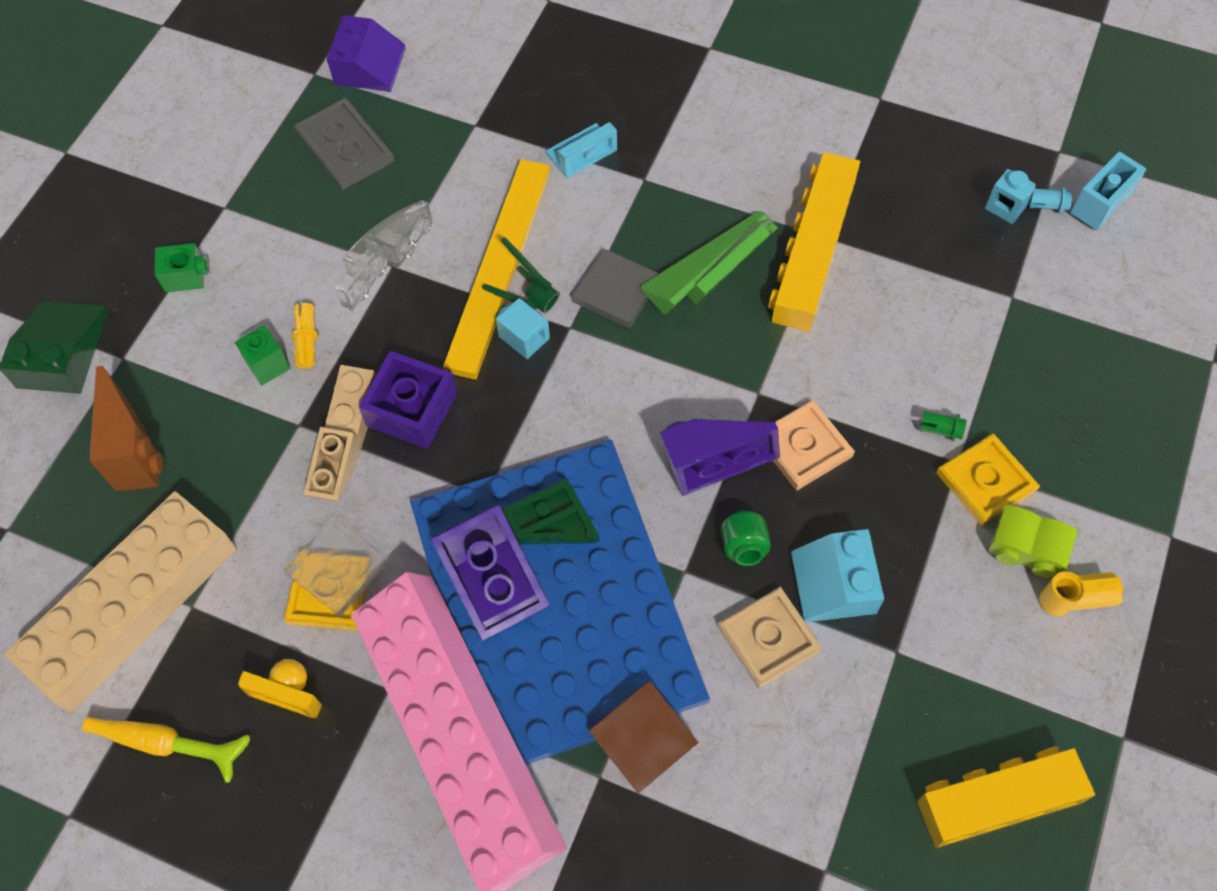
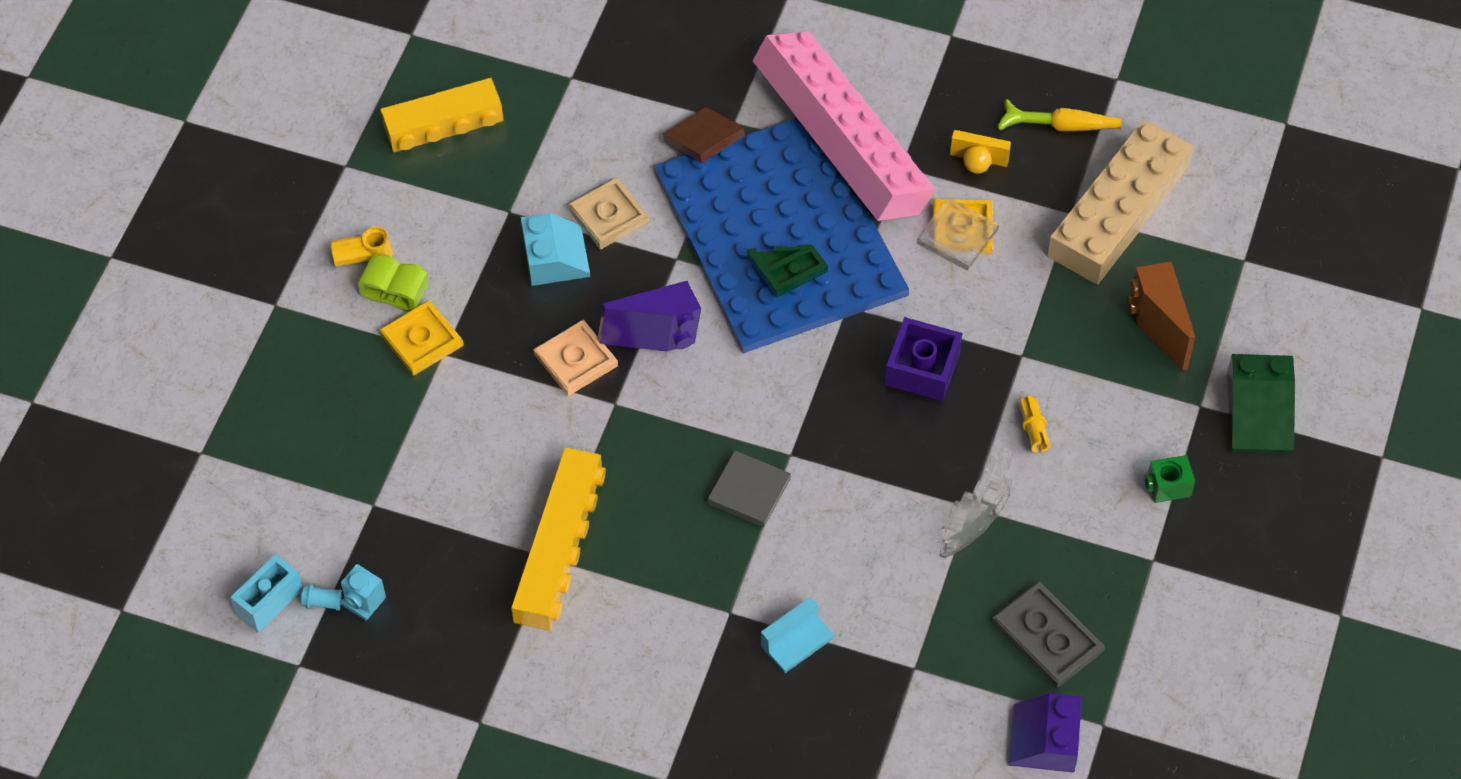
camera: 175 degrees right, 5 degrees down
(262, 355) = (1066, 397): green brick -> none
(342, 438) = (978, 333): tan slope -> none
(489, 571) = (835, 225): dark purple slope -> none
(496, 270) = (864, 509): yellow tile -> none
(522, 328) = (833, 437): medium azure brick -> none
(540, 291) = (822, 469): dark green plant -> none
(709, 264) = (657, 508): bright green wedge -> none
(745, 537) = (627, 272): green head -> none
(943, 425) = (454, 375): green pin -> none

